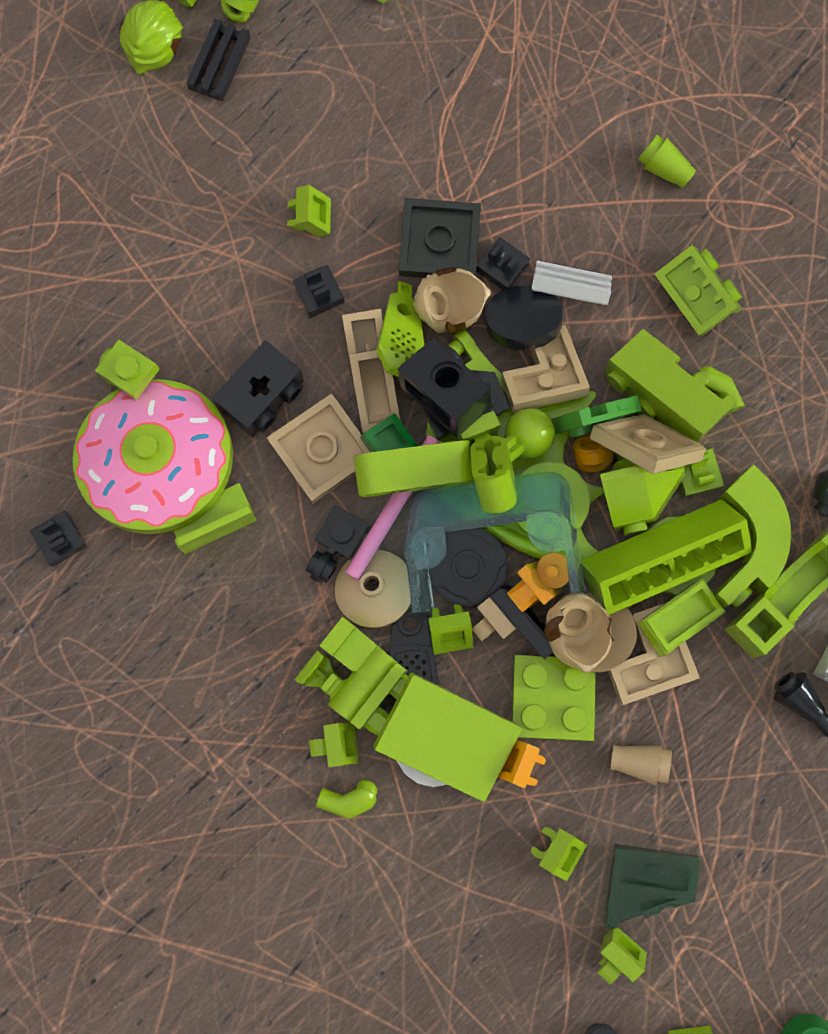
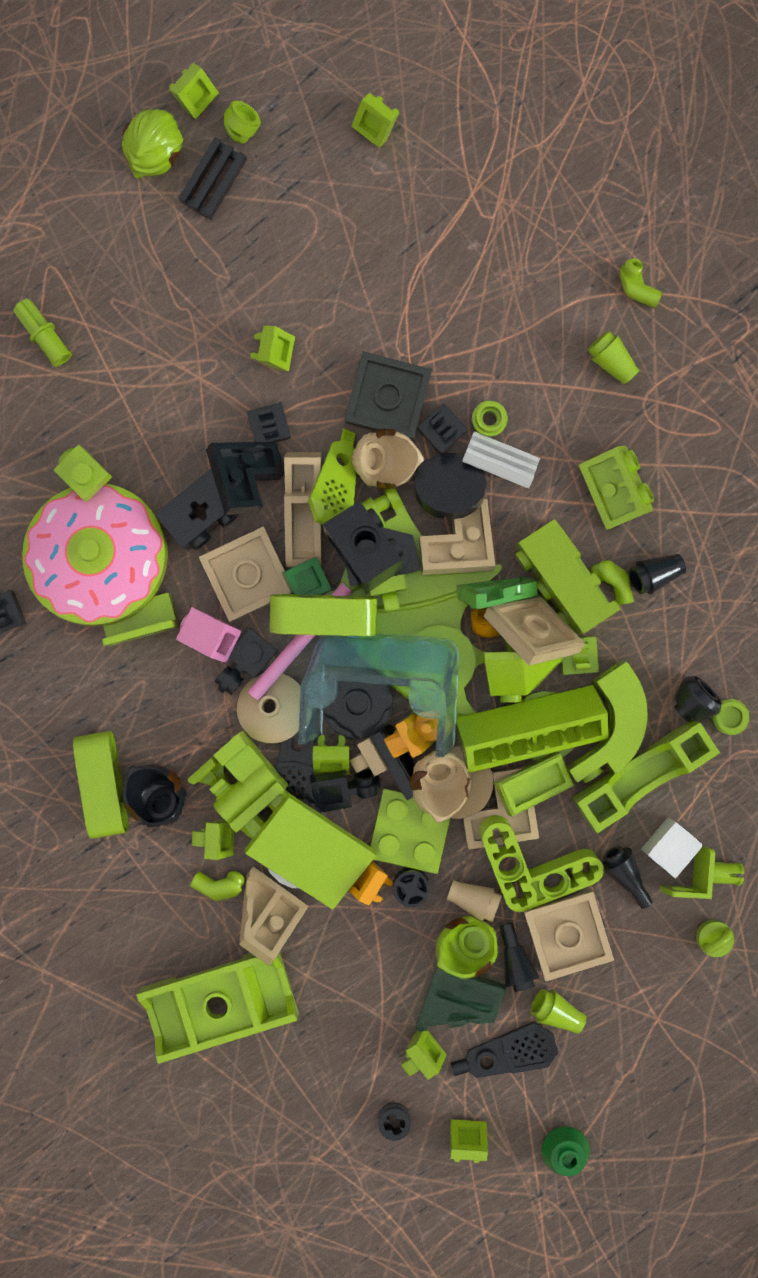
camera: 10 degrees right, 10 degrees up
(63, 238) = (42, 332): none -> lime axle
(196, 707) = (100, 784): none -> lime beam
(258, 706) = (153, 795): none -> black hair
(291, 518) = (208, 635): none -> bright pink brick
(296, 338) = (236, 470): none -> black plate
(328, 951) = (255, 997): none -> lime piece
(411, 822) = (267, 916): none -> tan wing
(459, 666) = (333, 791): none -> black plate
(527, 435) = (430, 599): lime beam -> none
(554, 235) = (493, 408): none -> lime plate
(562, 853) = (390, 964): lime tile -> none
(575, 761) = (409, 893): none -> black wheel
(645, 817) = (466, 947): none -> lime hair
(671, 89) = (634, 285): none -> lime arm
(701, 727) = (532, 880): none -> lime beam
(707, 831) = (518, 967): none -> black cone
(712, 941) = (504, 1055): none -> black piece
(756, 784) = (568, 935): none -> tan plate
(760, 371) = (655, 573): none -> black cone
(761, 876) = (557, 1012): none -> lime cone

